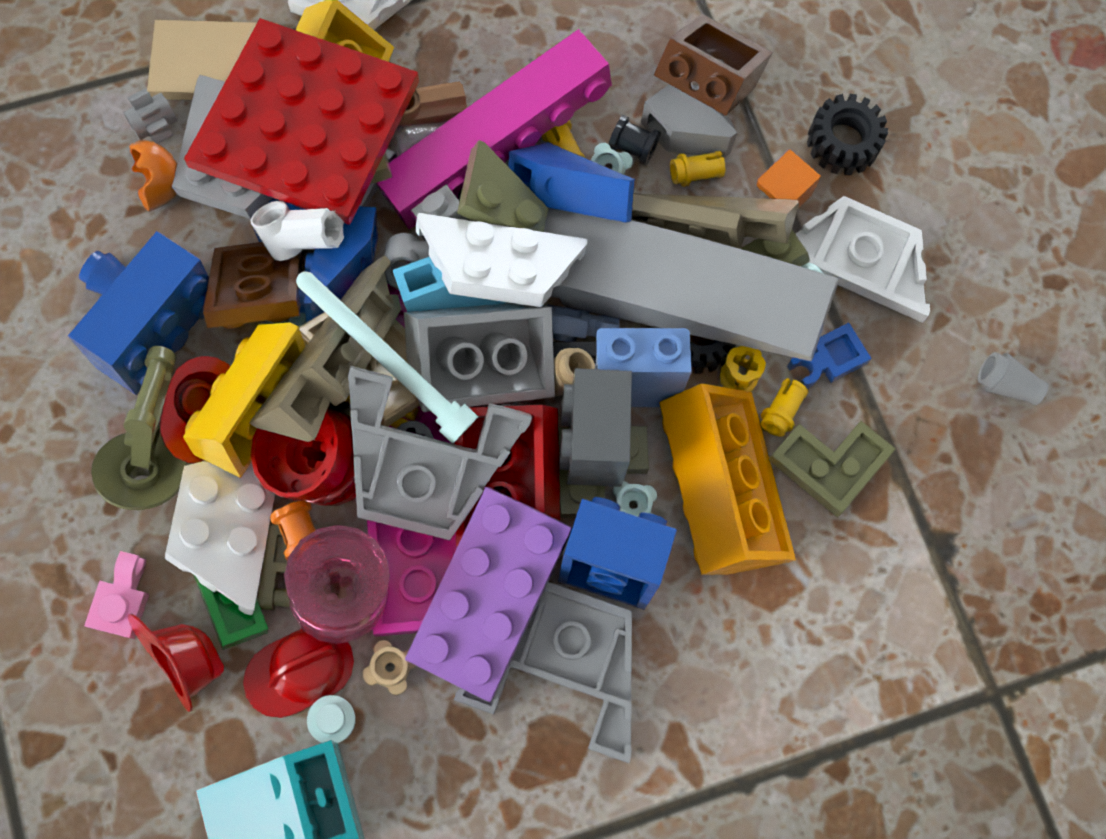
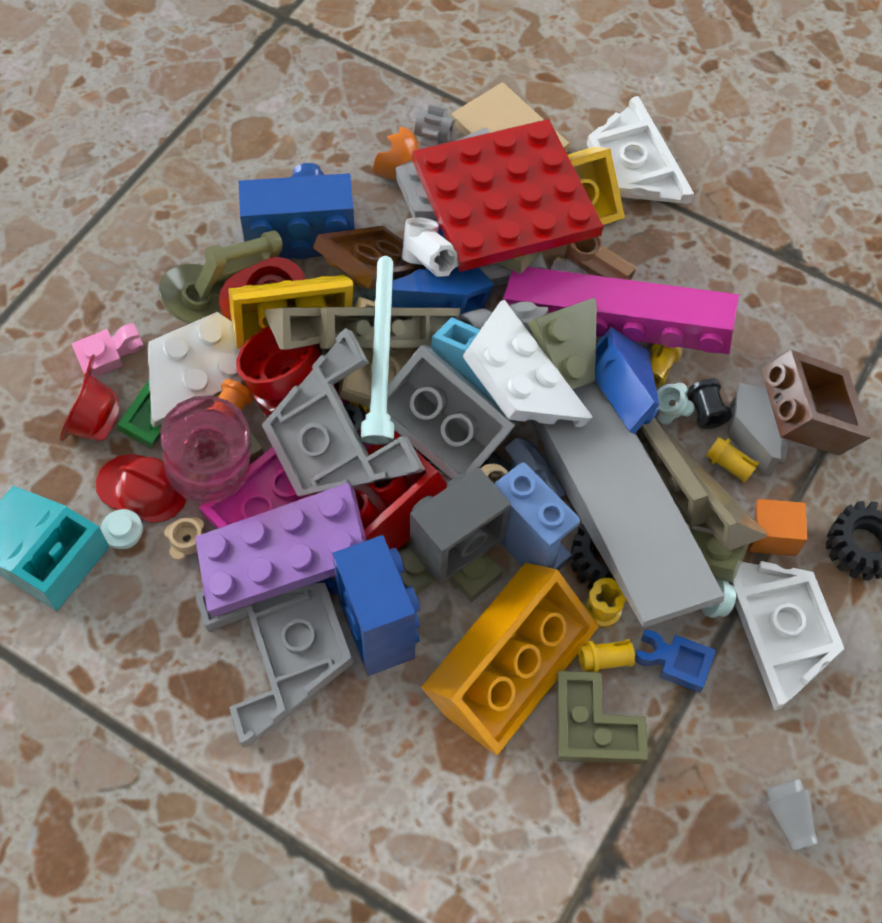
camera: 55 degrees right, 10 degrees down
(642, 495) = (449, 610): light aqua plate -> none

